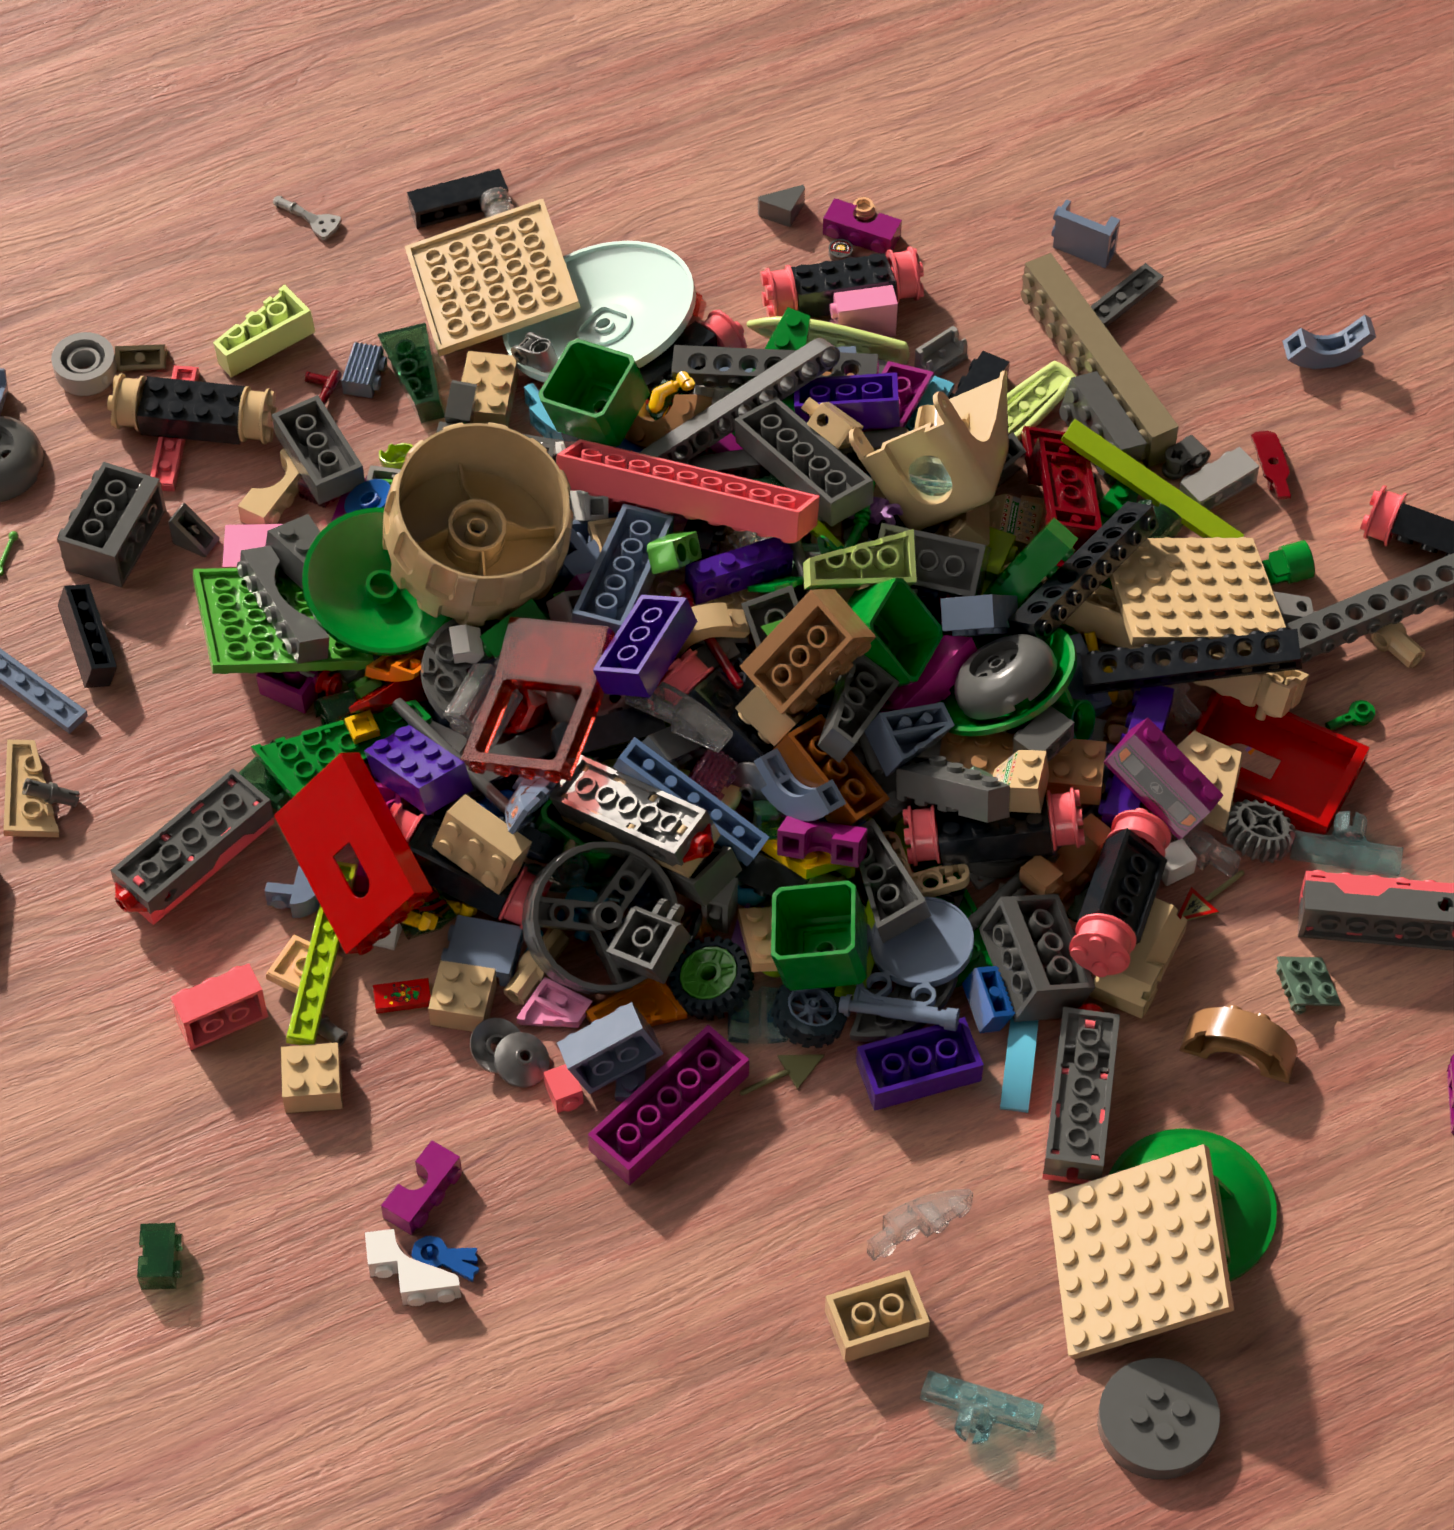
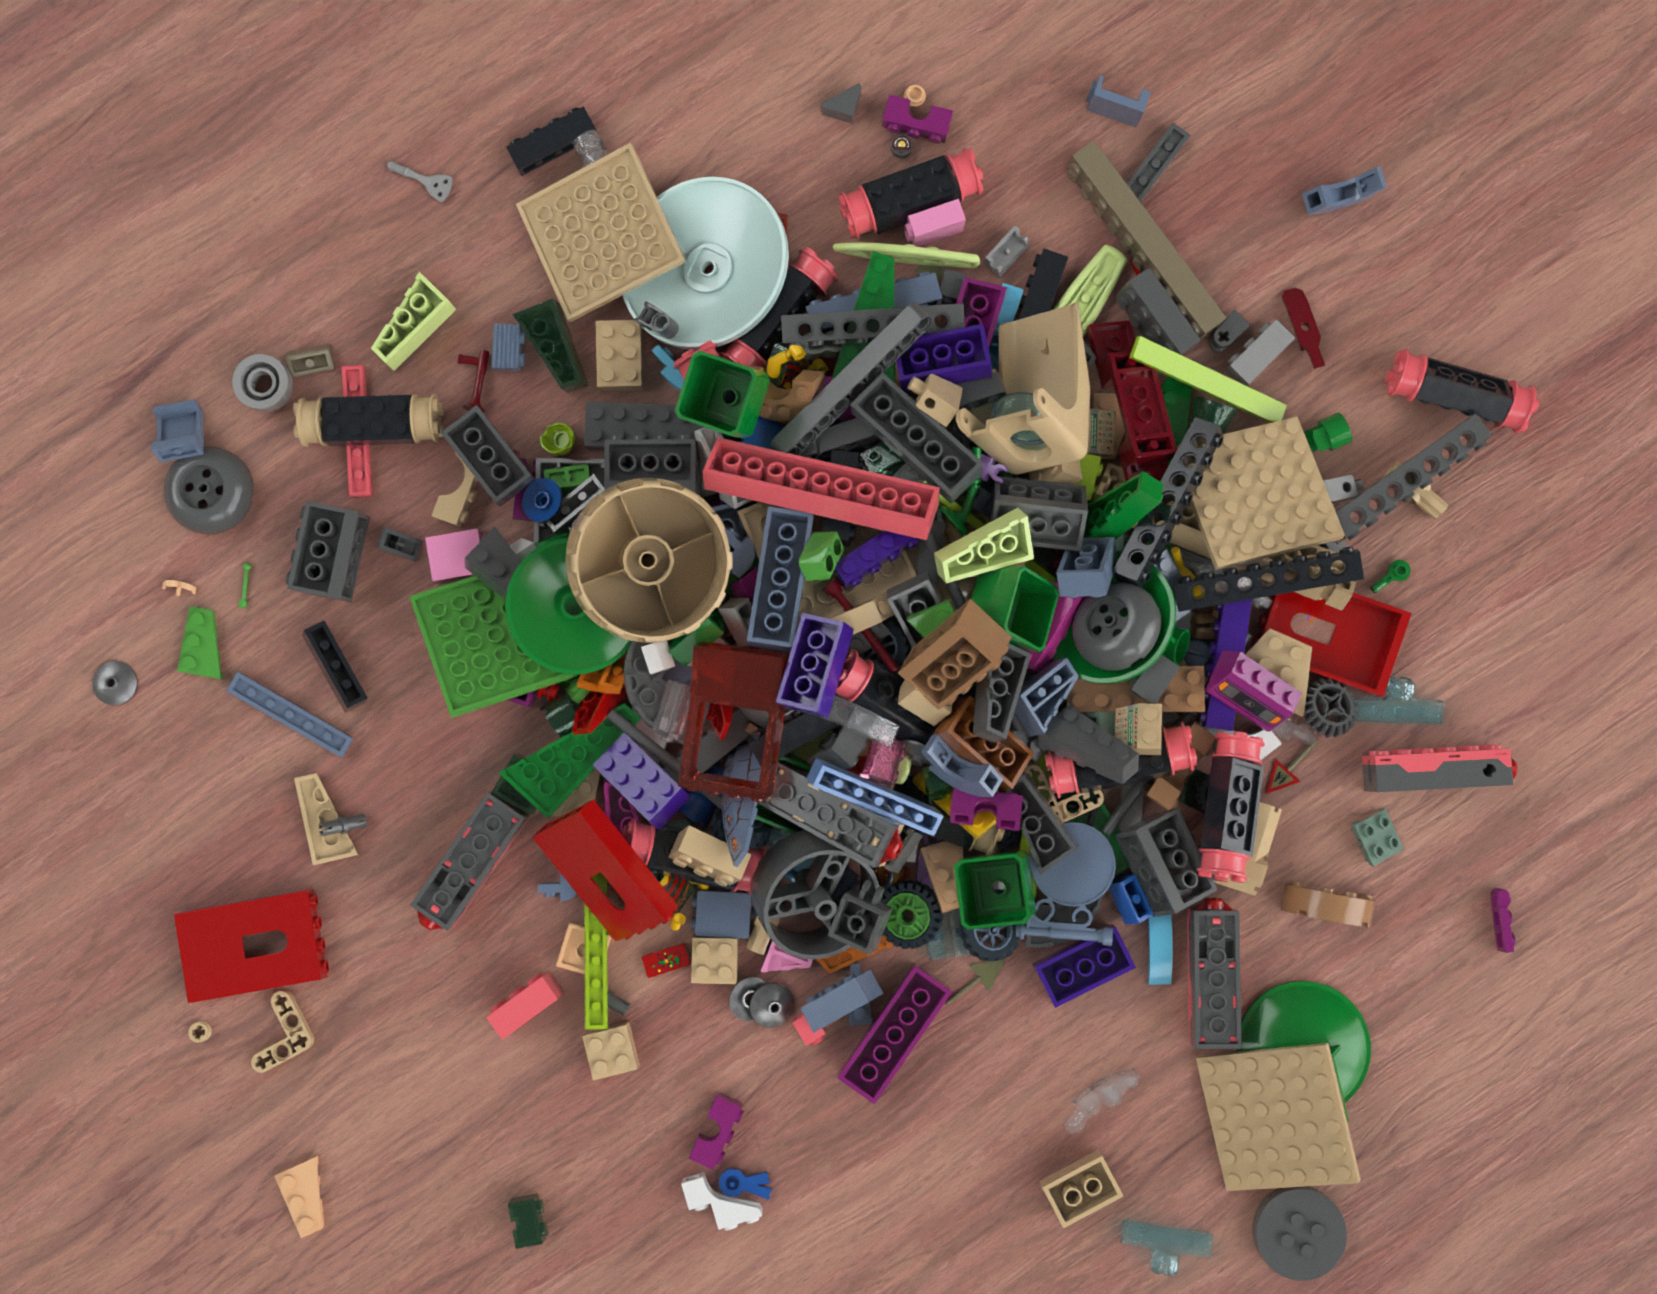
camera: 10 degrees left, 30 degrees up
(300, 633) = (468, 592): dark grey arch -> none
(362, 727) = (586, 742): yellow tile -> none
(461, 403) = (602, 388): dark grey slope -> none
(776, 584) = (912, 565): green piece -> none

